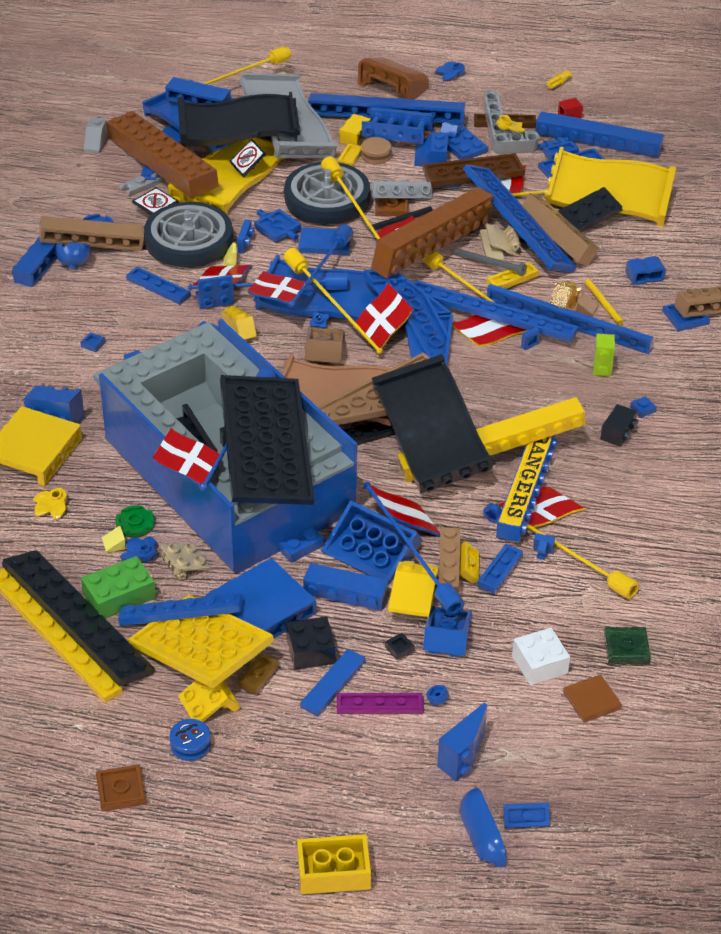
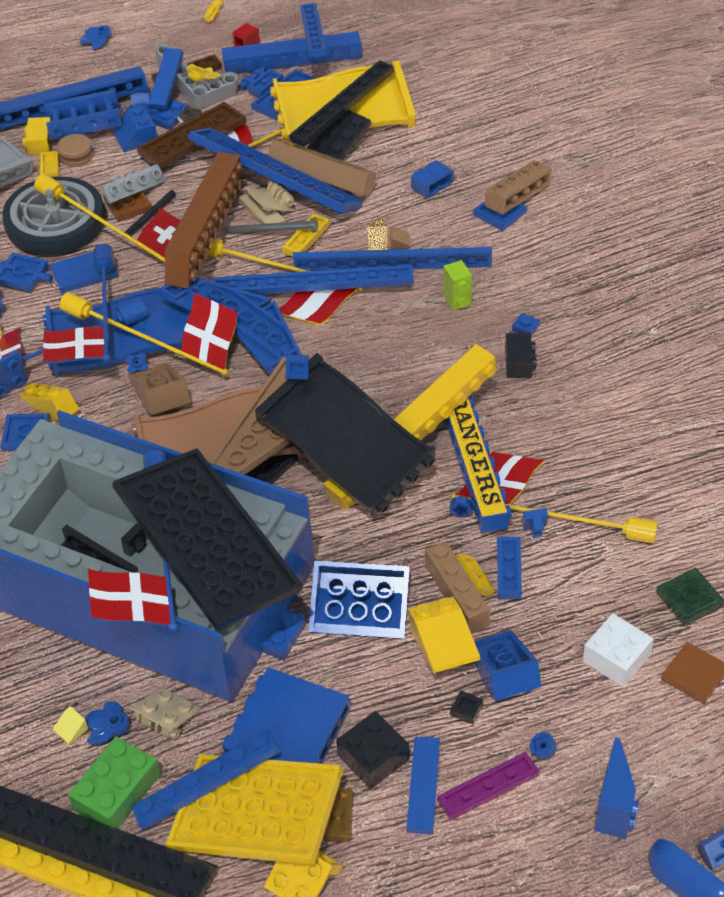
camera: 25 degrees left, 5 degrees up
(135, 521) = (79, 689): green tile -> none
(346, 586) = (366, 663): blue brick -> none
(408, 81) = (62, 61): dark orange windscreen -> none
(413, 515) = (379, 548): flag -> none
(418, 357) = (297, 366): none -> blue tile
(478, 119) = (165, 78): none -> blue tile
(482, 152) = (188, 113): none -> clear smoke plate
(530, 338) = (369, 296): blue tile -> none
(604, 184) = (341, 103): none -> black plate
(604, 302) = (412, 227): yellow bar -> none
(623, 121) = (313, 31): none -> blue plate

